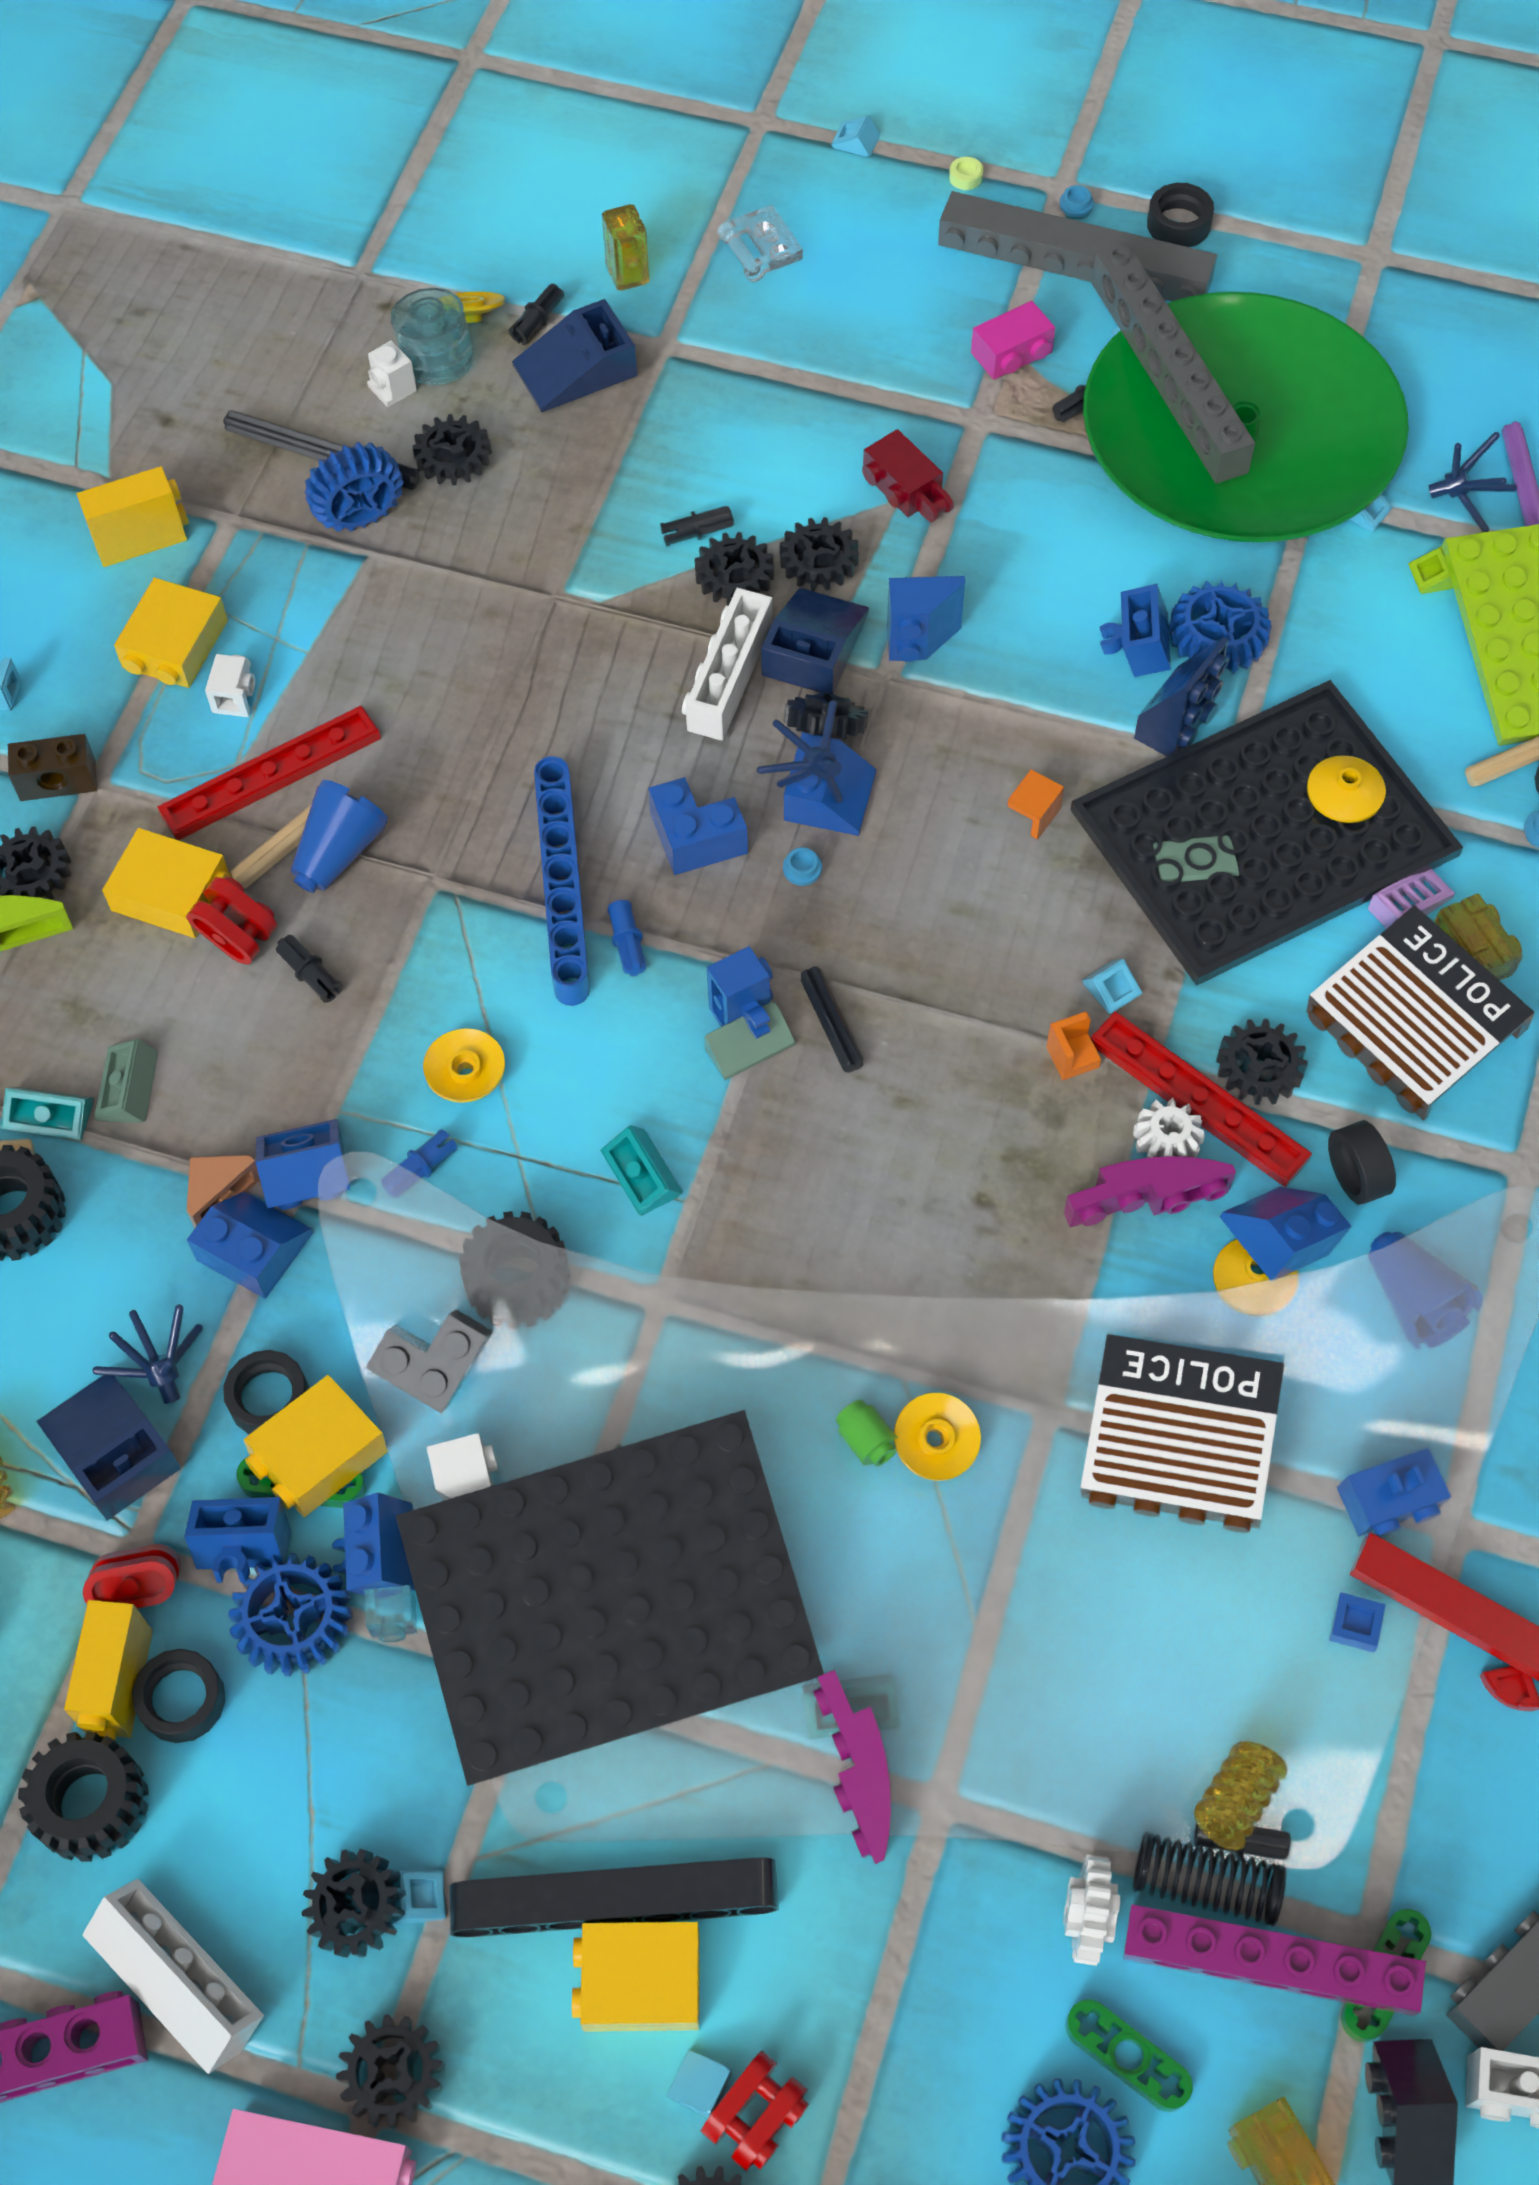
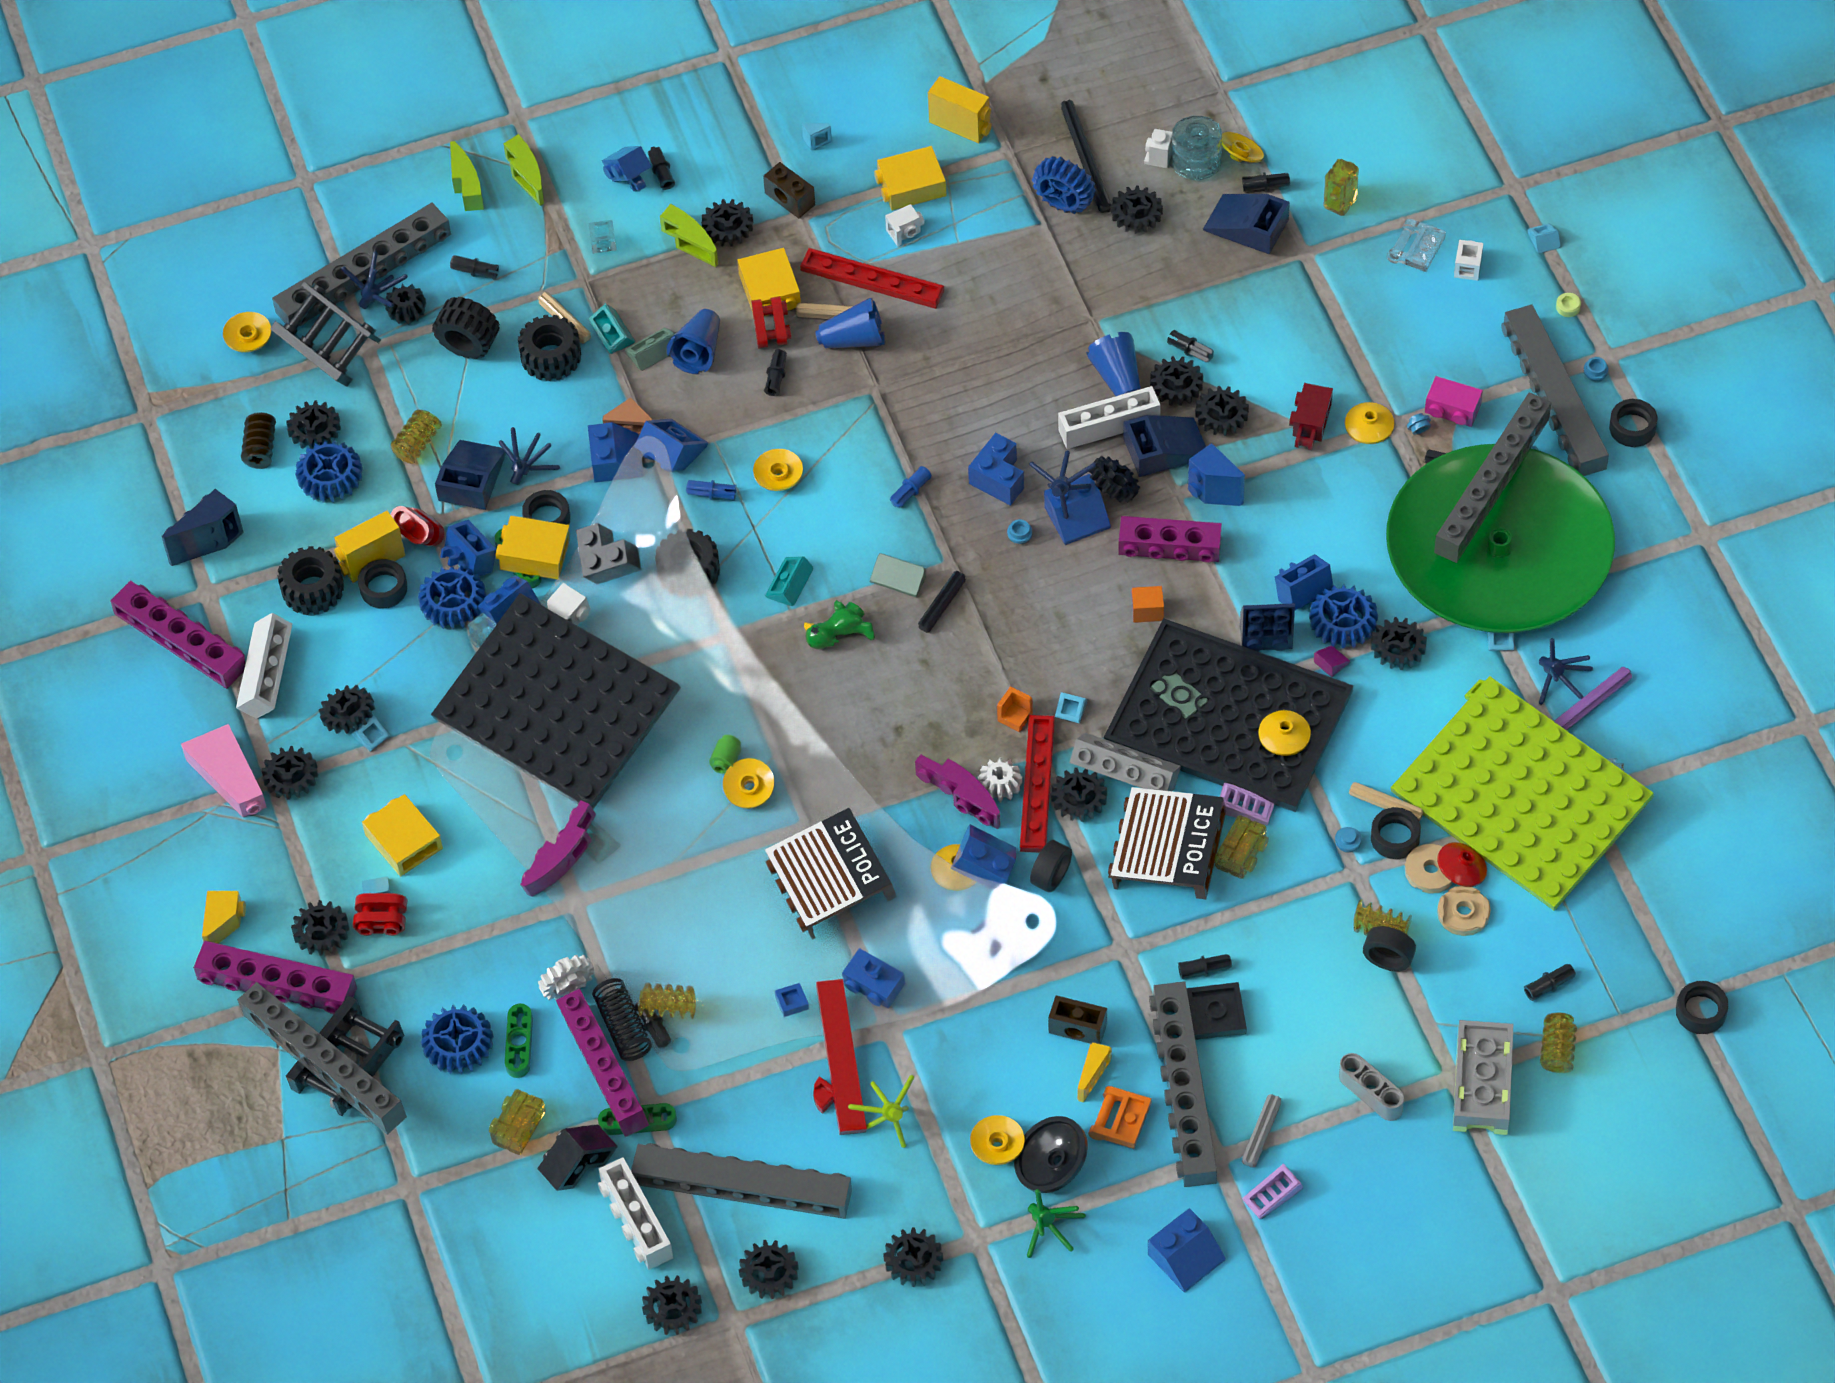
camera: 55 degrees right, 5 degrees down
(178, 1024) = (695, 342): none -> blue cone
(566, 893) = (917, 437): blue beam -> none
(613, 1896) = (439, 812): black beam -> none
(664, 608) = (1116, 362): none -> blue cone
(740, 988) = (913, 546): blue brick -> none
(772, 1149) = (843, 622): none -> green animal
(829, 210) = (1468, 260): none -> white brick
(913, 749) = (1160, 531): none -> magenta brick
(957, 437) = (1369, 430): none -> yellow dish
(1009, 391) = (1419, 423): none -> dark azure plate
(1262, 980) = (1124, 763): none -> light grey brick
(1267, 682) = (1330, 660): none -> magenta slope
(1303, 601) = (1398, 643): none -> black gear

